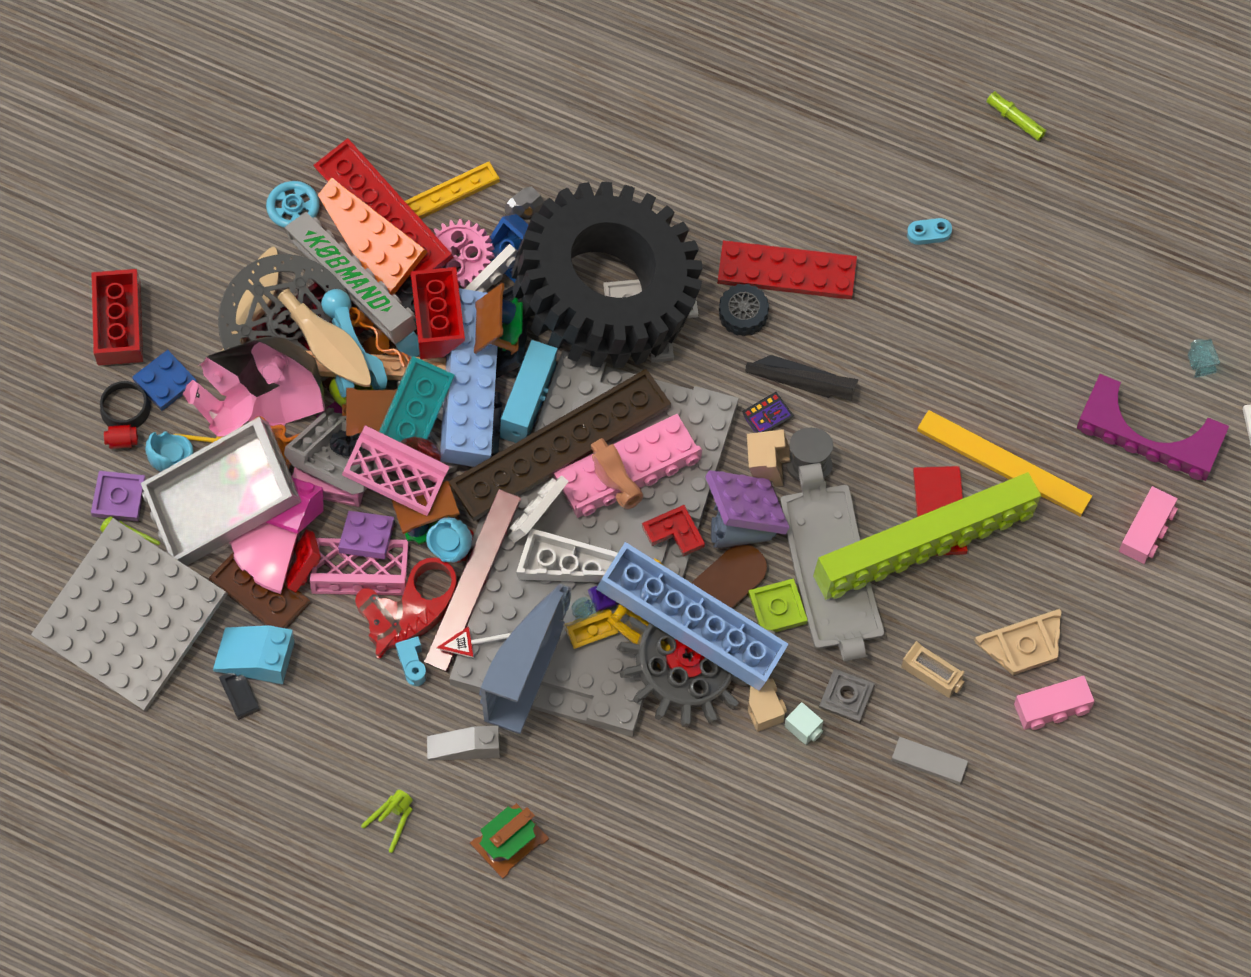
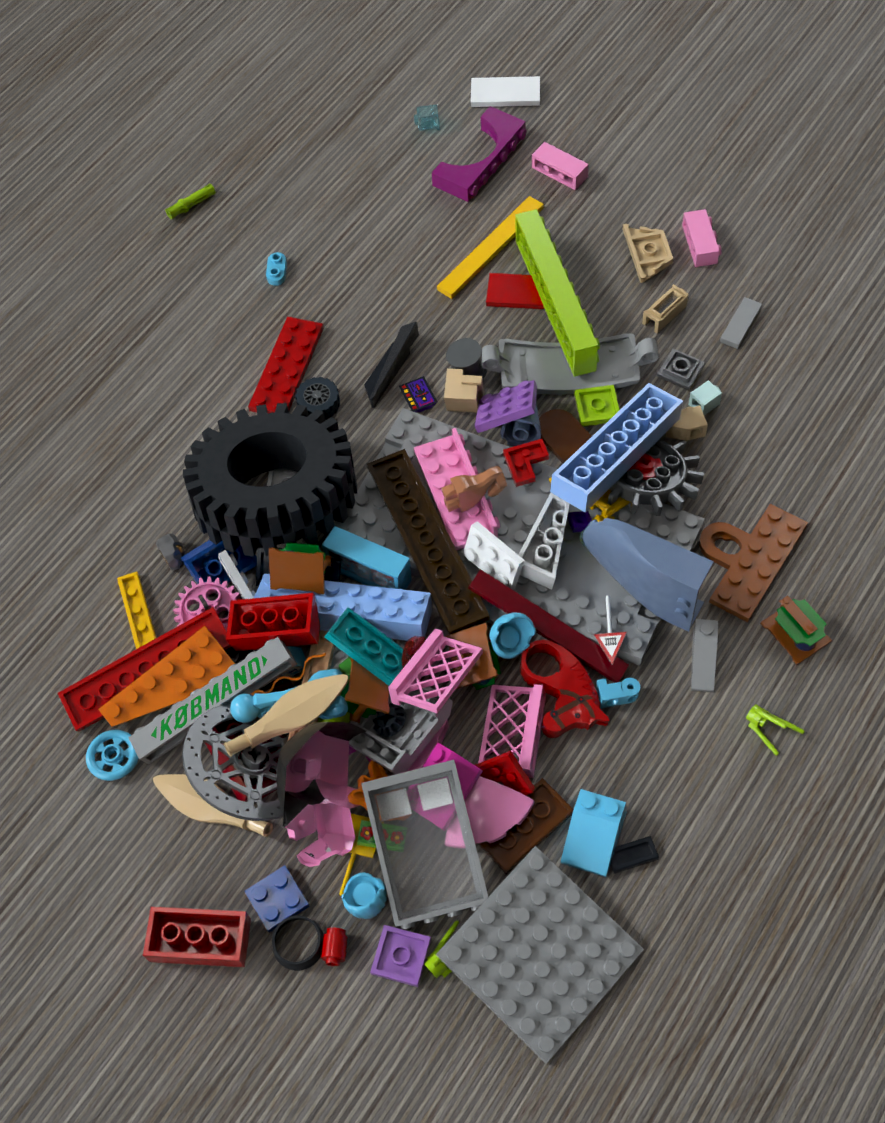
camera: 75 degrees left, 5 degrees down
(366, 534) = (482, 719): medium lavender plate -> none
(593, 796) = (756, 563): none -> dark orange plate

